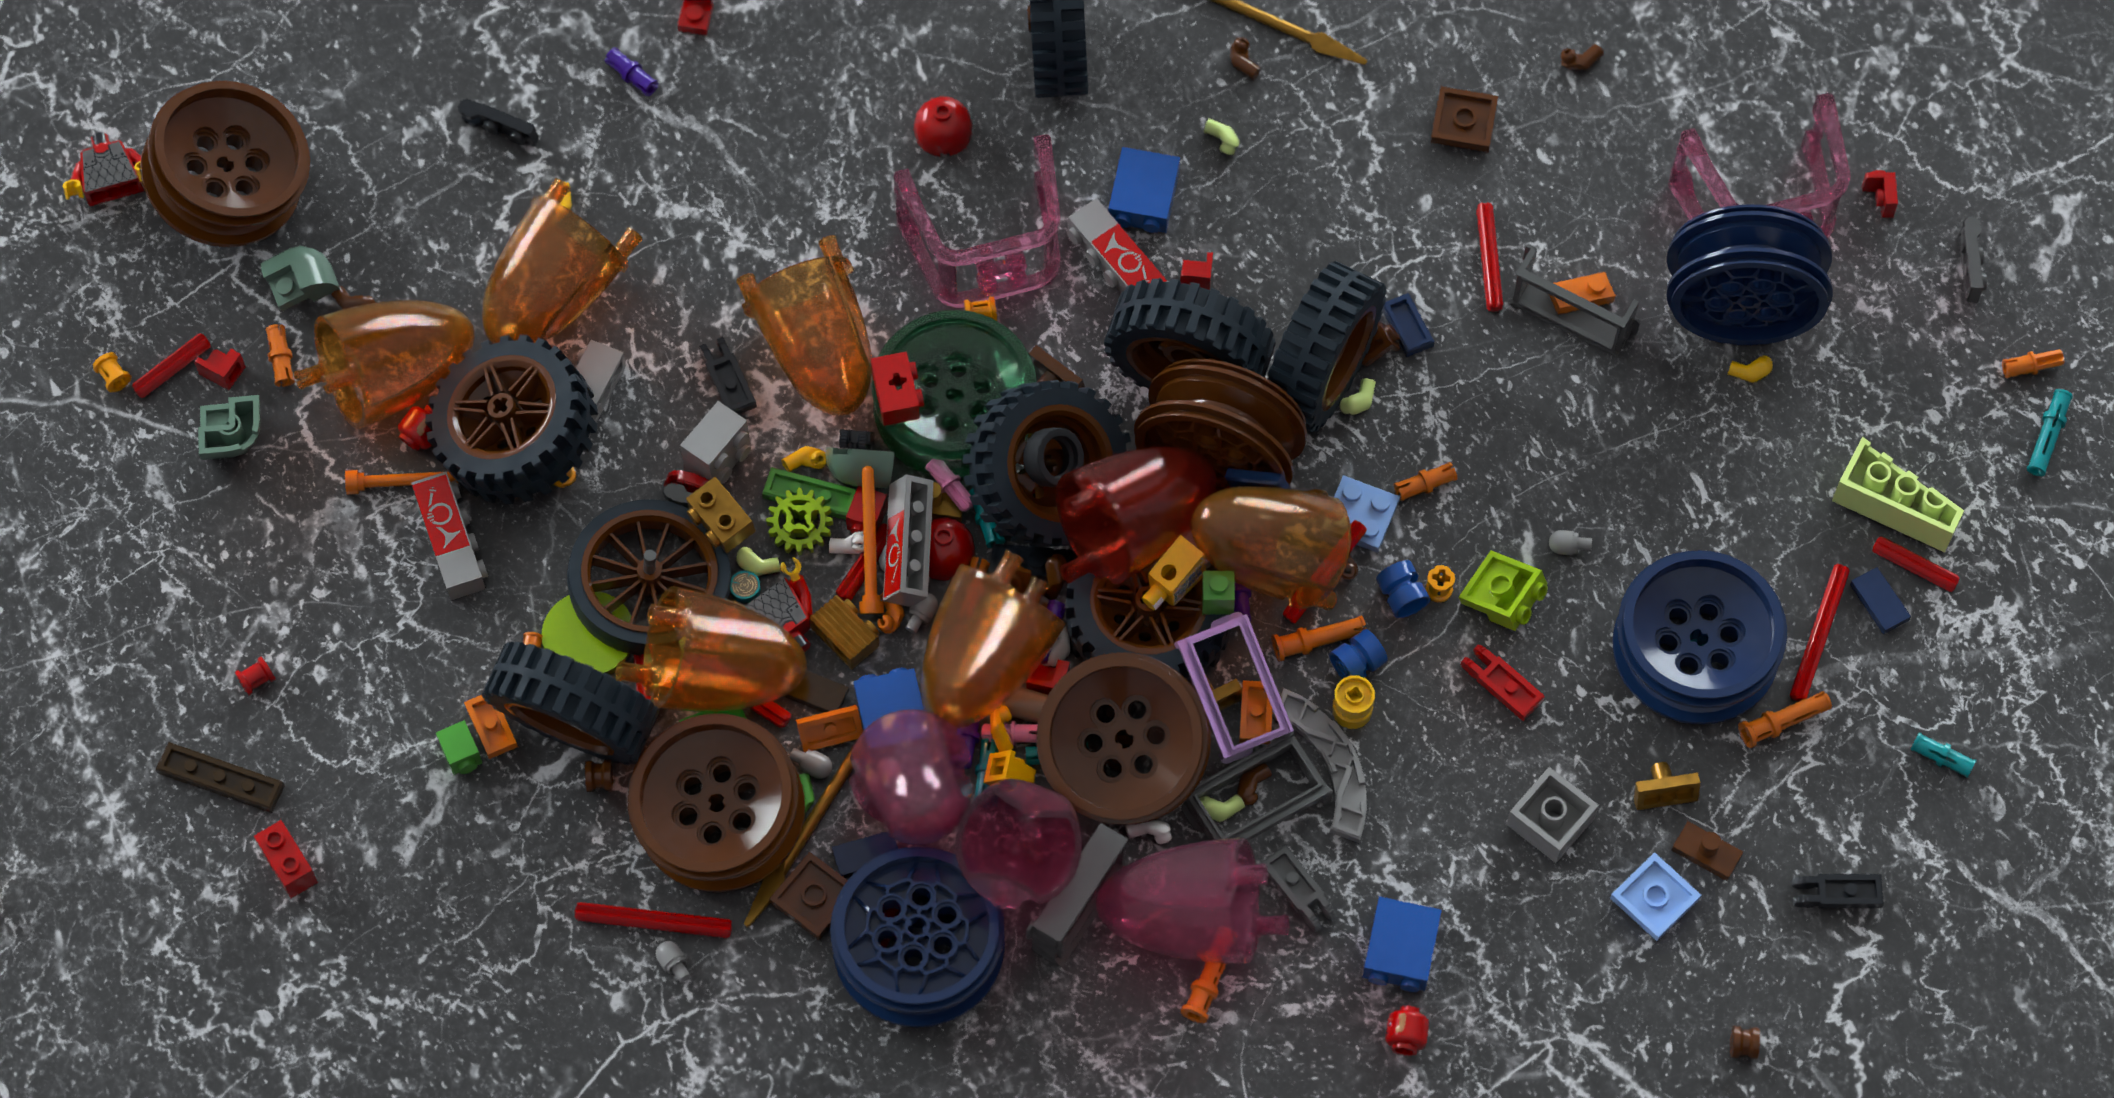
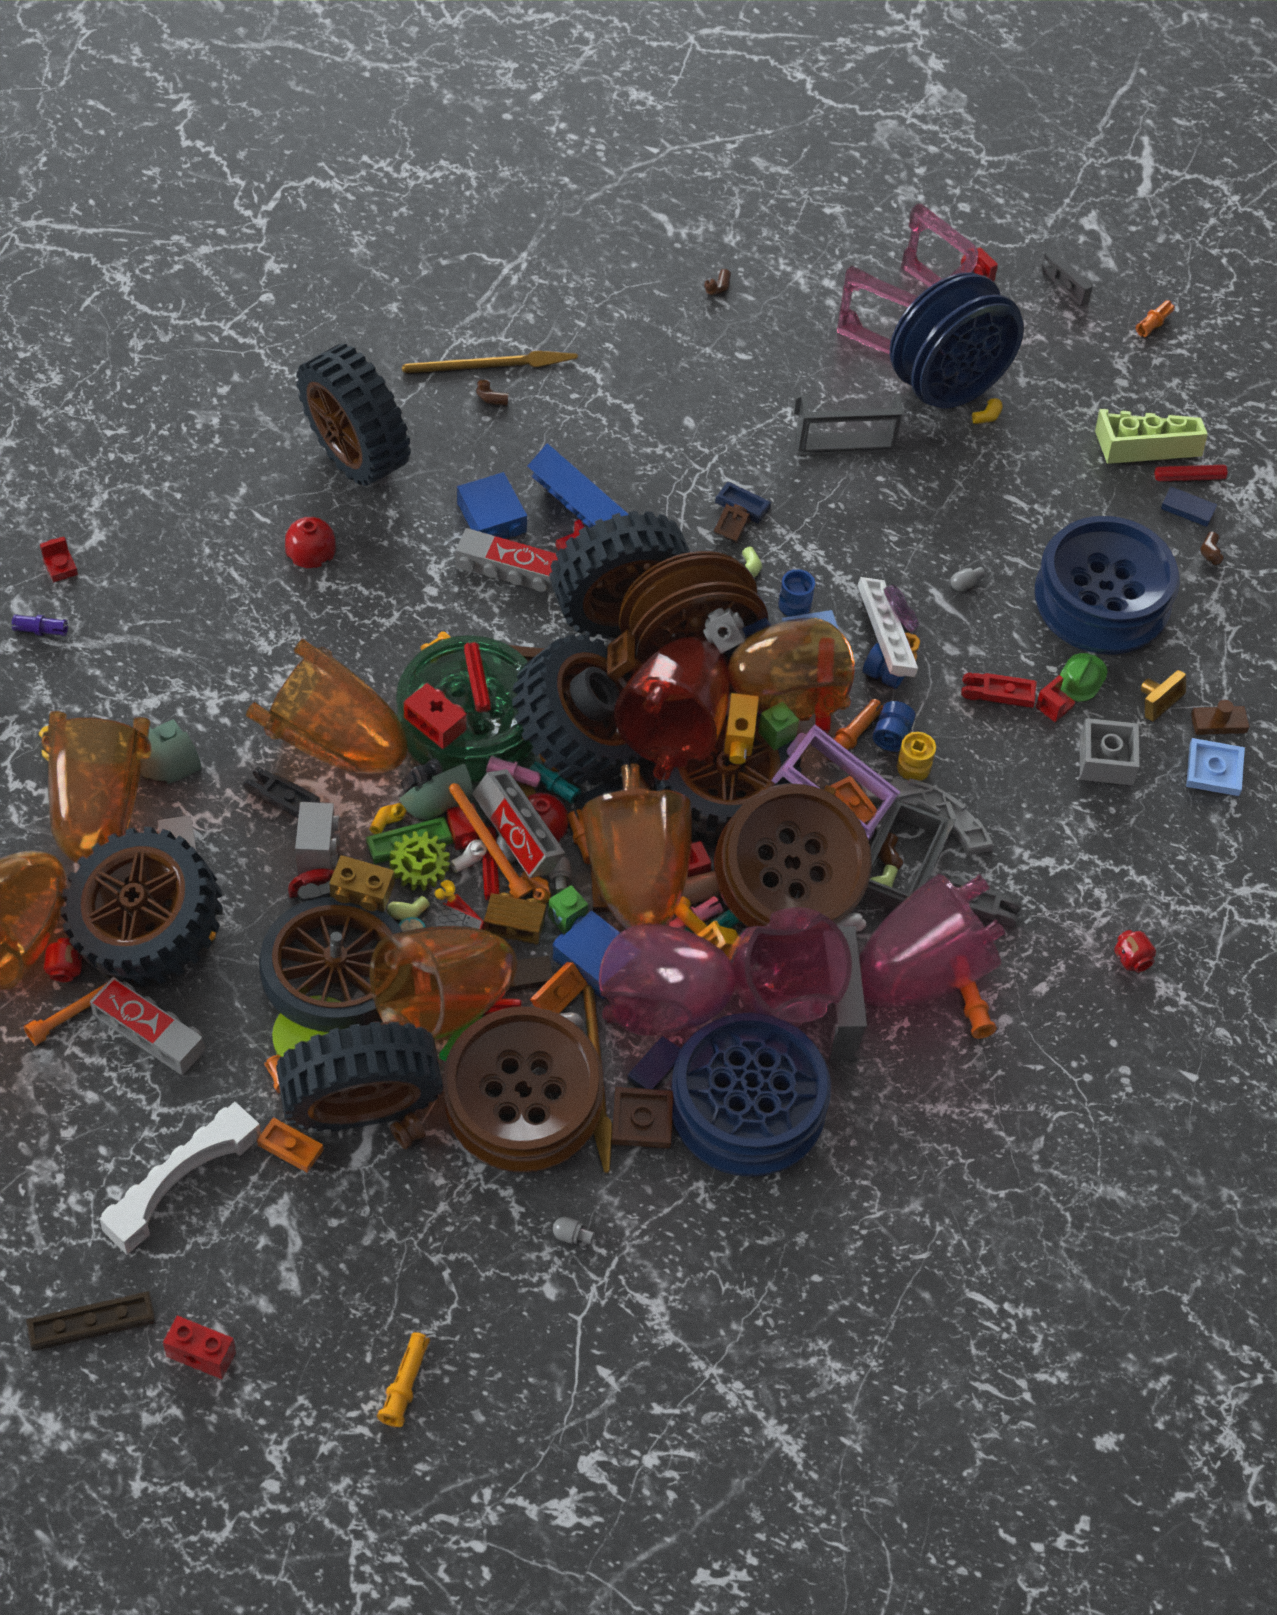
camera: 40 degrees left, 10 degrees down
(254, 675) = (63, 1223): red bush -> none
(312, 705) = (228, 1133): none -> white arch
(421, 1007) = (401, 1392): none -> light orange pin
(459, 748) = (279, 1177): bright green brick -> none
(652, 274) = (171, 754): none -> sand green brick
(653, 919) = (532, 1211): red axle -> none
(897, 651) = (566, 908): none -> bright green brick
(914, 219) = (444, 580): clear pink windscreen -> none
(967, 370) = (477, 677): none -> red axle
(1108, 434) = (622, 657): none -> reddish brown tile
(1221, 465) = (724, 638): none -> light grey brick
(1226, 135) = (516, 447): yellowish green arm -> none
(1240, 238) = (572, 487): none -> blue brick
(1328, 340) = (719, 508): black wheel -> none
(1374, 458) = (796, 593): none -> blue wheel
(1401, 944) = (1082, 896): blue brick -> none
(1425, 481) = (840, 591): orange pin -> none
(1429, 549) = (887, 628): none -> white plate
(1464, 119) = (674, 356): reddish brown plate -> none
(1464, 536) = (901, 608): none -> clear purple tile
(1489, 257) = (762, 432): red axle -> none
(1505, 590) = (953, 629): lime plate -> none
(1550, 727) = (1053, 701): none -> red panel
(1593, 288) = (838, 430): orange plate -> none
(1604, 718) = (1083, 676): none -> bright green piece
(1772, 723) = (1192, 616): orange pin -> none
(1819, 632) = (1163, 530): red axle -> none
(1859, 659) = (1210, 550): none -> reddish brown arm
(2060, 404) = (1198, 345): teal pin -> none

